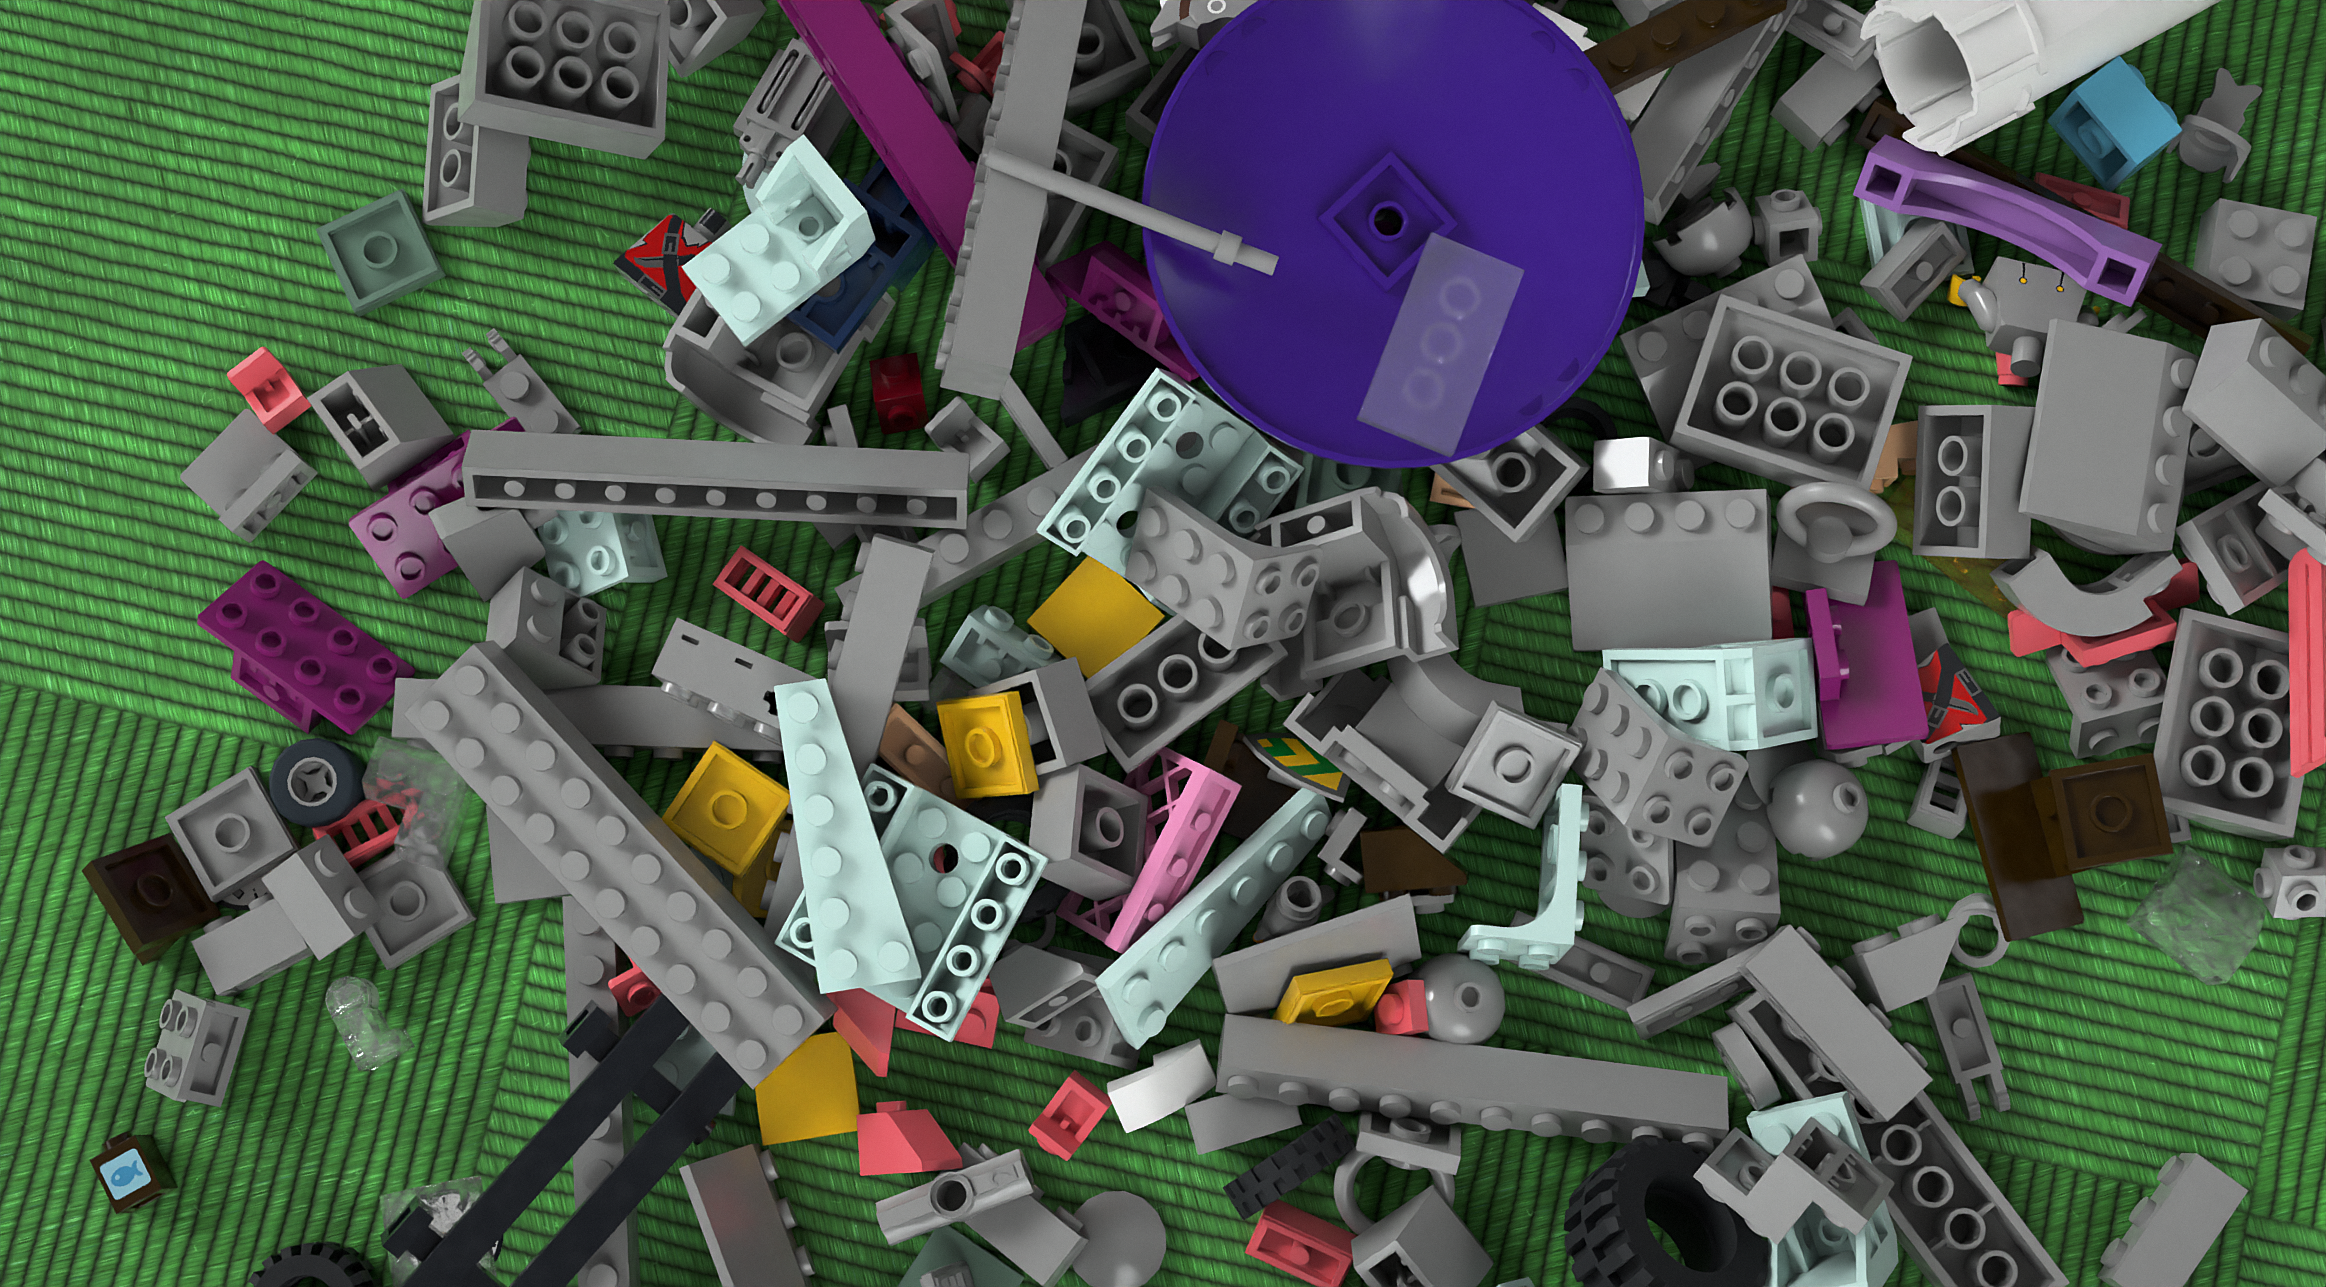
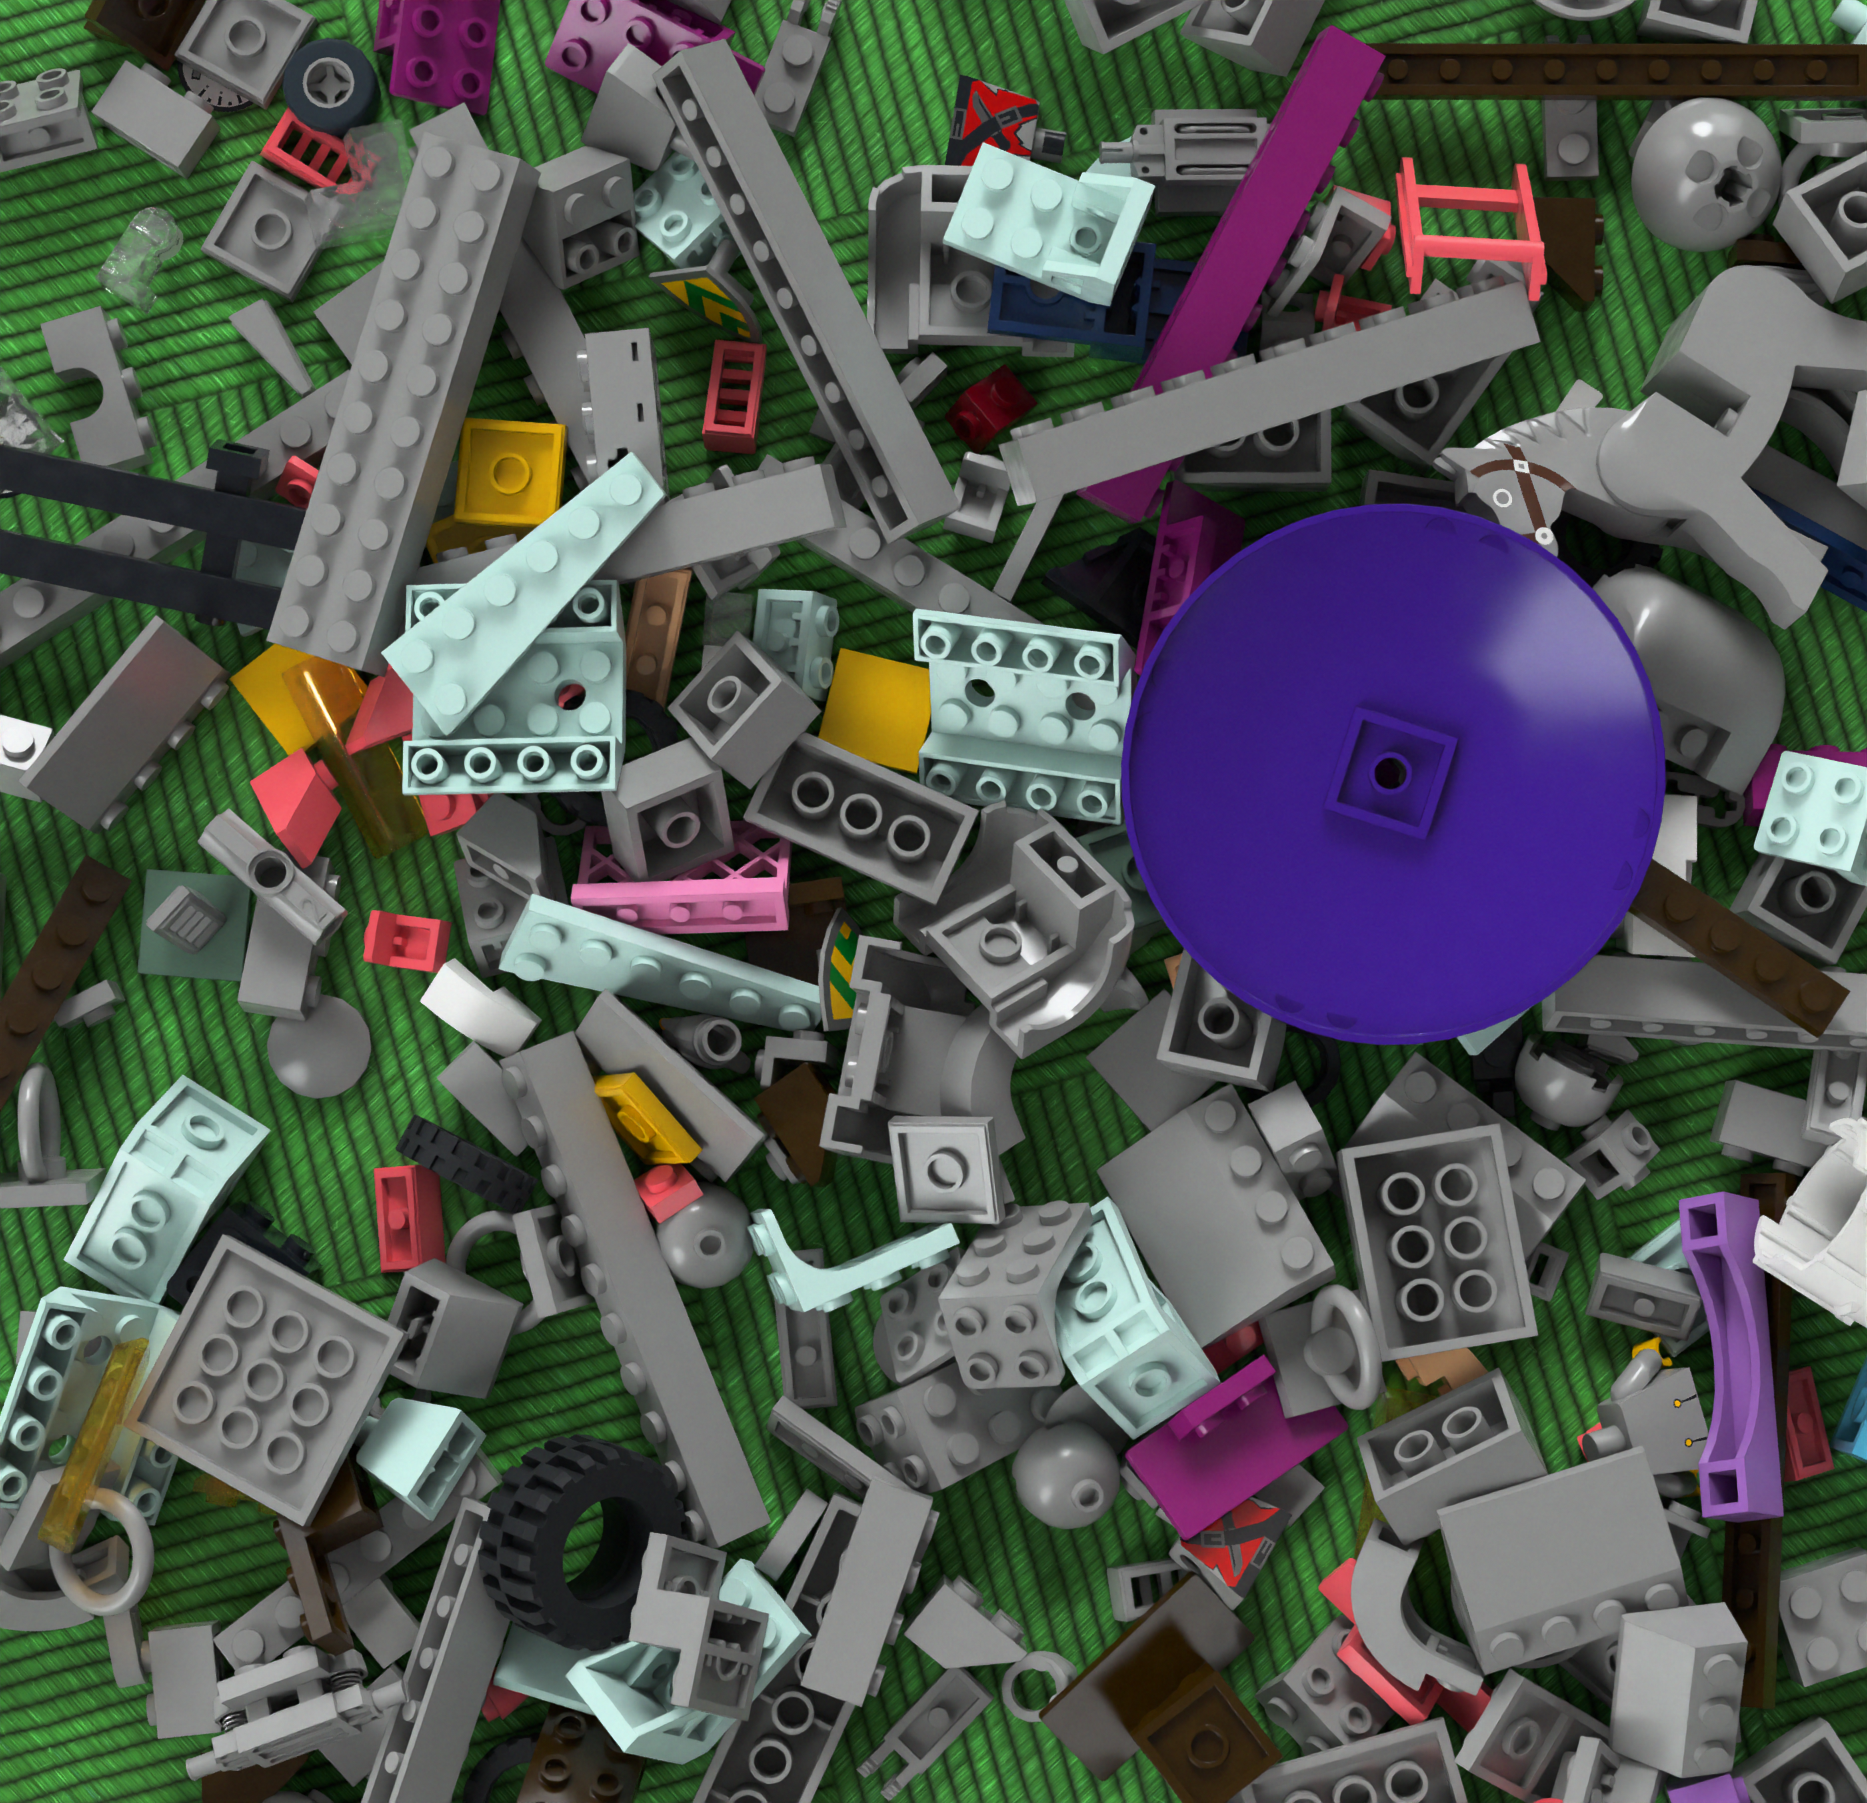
camera: 55 degrees right, 5 degrees up
(323, 896) = (230, 155): light grey brick -> none
(414, 1110) = (90, 347): none -> light grey arch
(494, 953) = (266, 334): none -> light grey slope
(676, 562) = (714, 294): none -> shield
(916, 1073) = (368, 779): none -> clear yellow slope
(987, 745) = (696, 676): yellow tile -> none
(1218, 580) = (961, 802): light grey bracket -> none
(1225, 246) = (1267, 635): light grey bar -> none
(1440, 344) = (1294, 886): clear tile -> none

